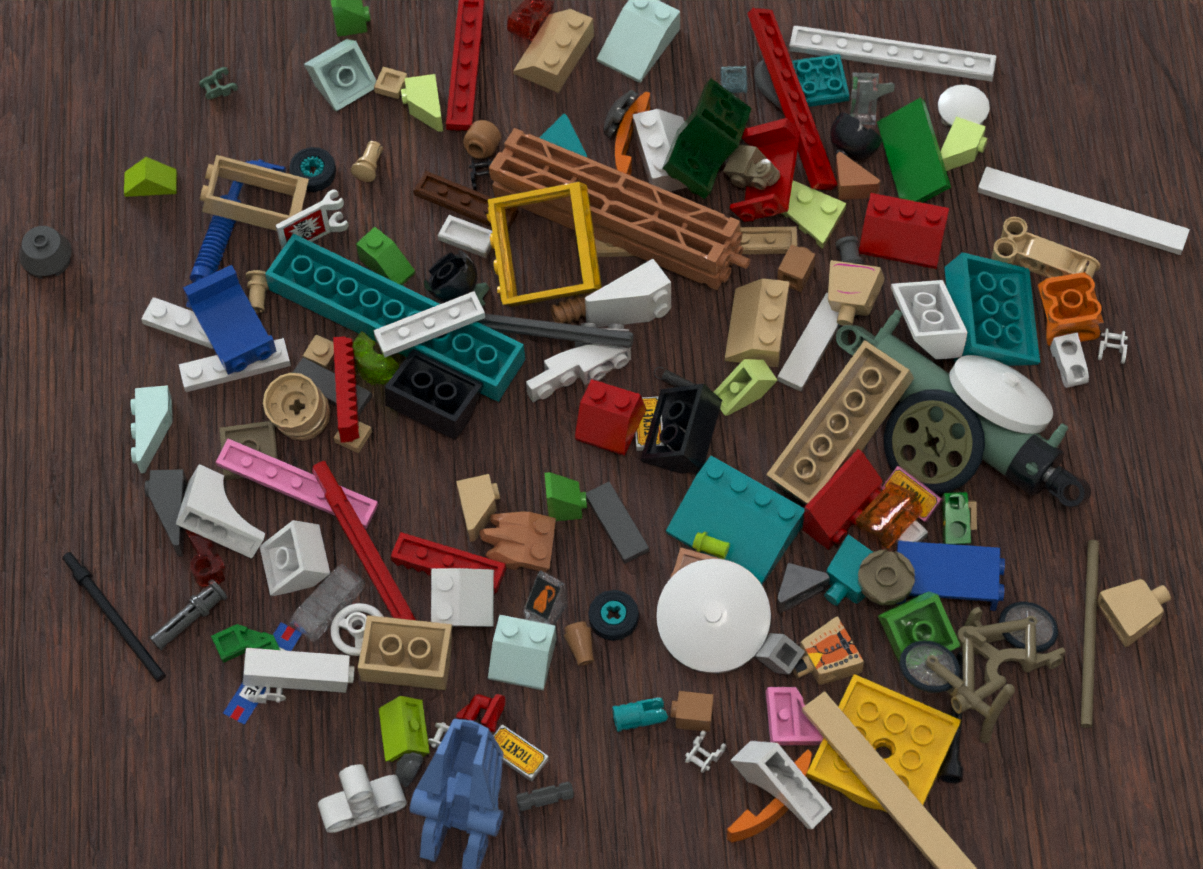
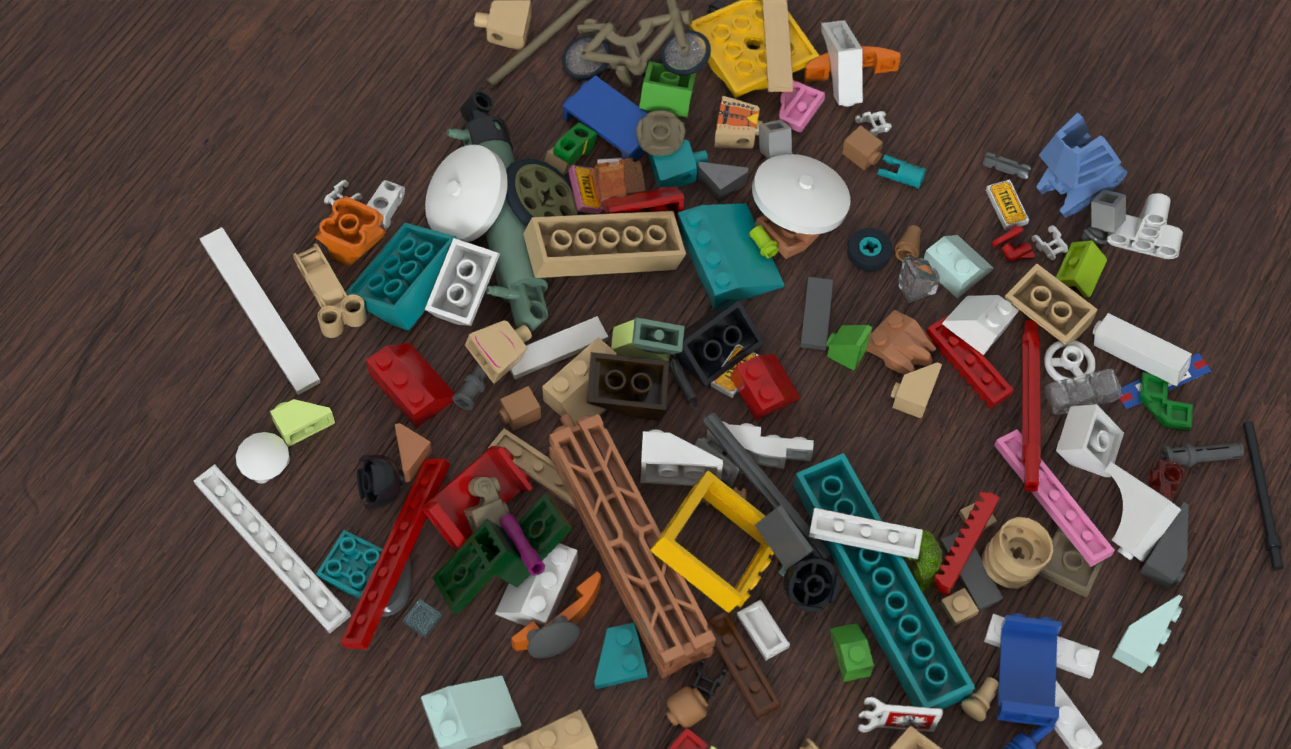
camera: 150 degrees left, 0 degrees up
(405, 776) = (1108, 211): none -> light grey brick
(433, 394) = (895, 489): black slope -> none
(496, 292) = (783, 537): none -> dark grey slope
(681, 134) = (516, 535): none -> magenta piece
(720, 330) = (628, 385): none -> dark brown slope
(726, 370) = (658, 336): none -> sand green slope
(814, 212) = (461, 445): yellowish green wing -> none
(864, 96) = (333, 508): clear piece -> none
(914, 153) = (344, 434): green tile -> none

